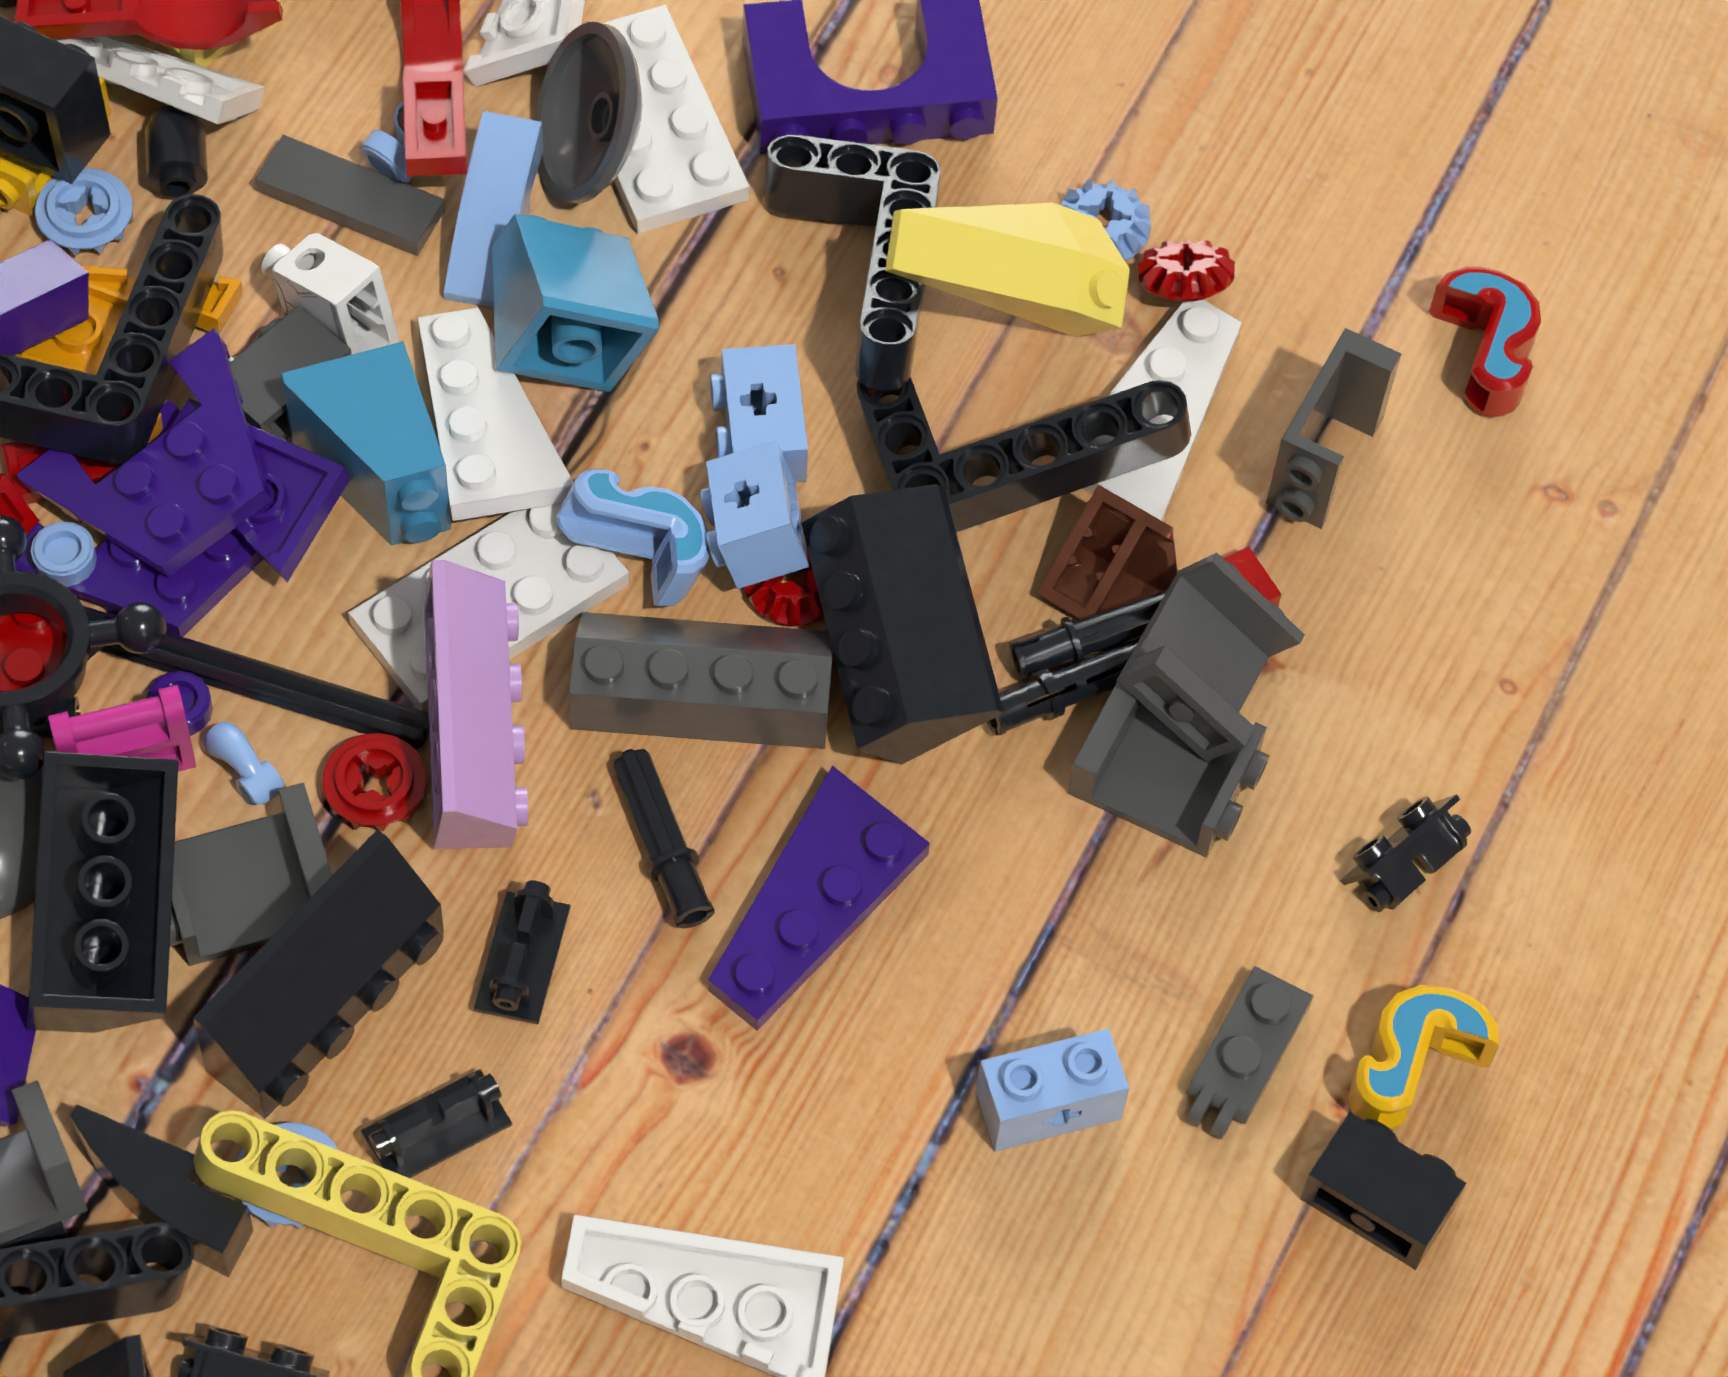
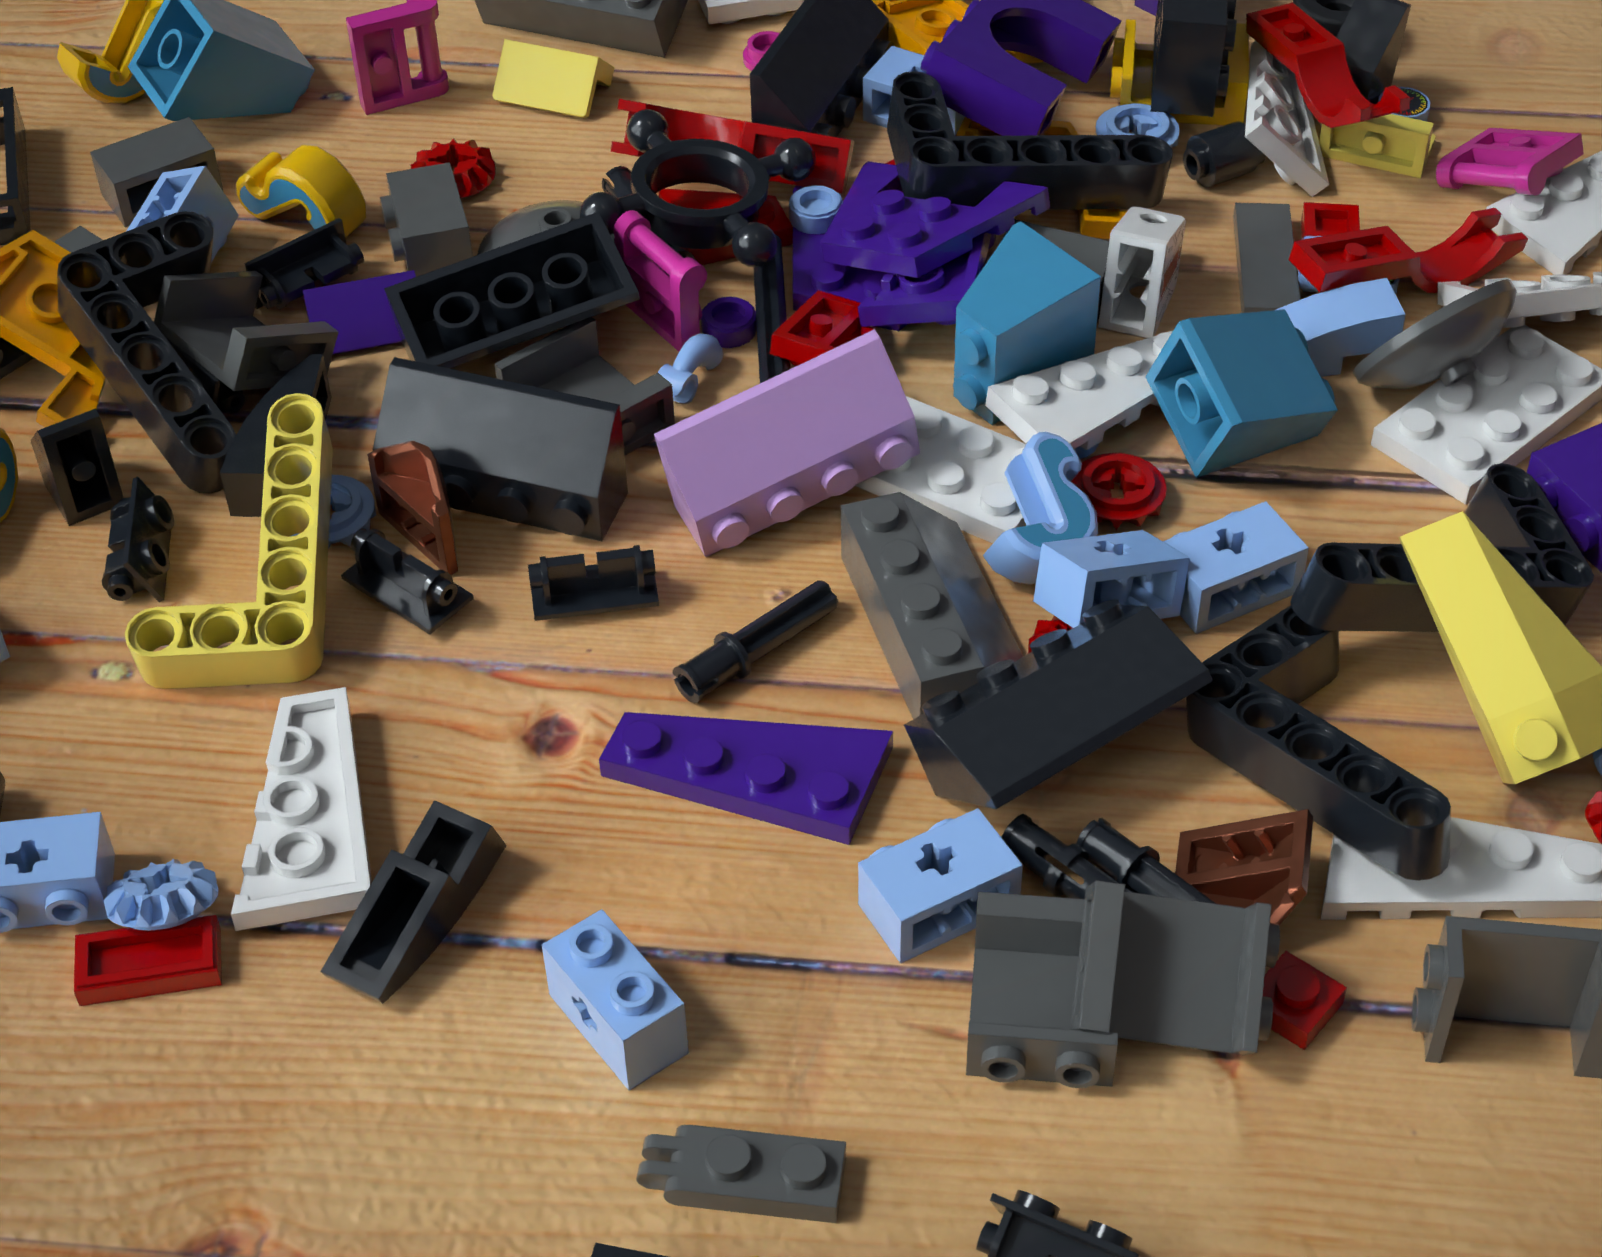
camera: 75 degrees right, 15 degrees down
(281, 620) = (817, 327): none -> red wing
(340, 118) = (1329, 219): none -> red plate
(353, 1072) = (415, 499): none -> copper slope
(604, 437) = (1141, 485): none -> red gear
(867, 1227) = (414, 902): none -> black slope
(1030, 762) = (931, 883): none -> light blue brick

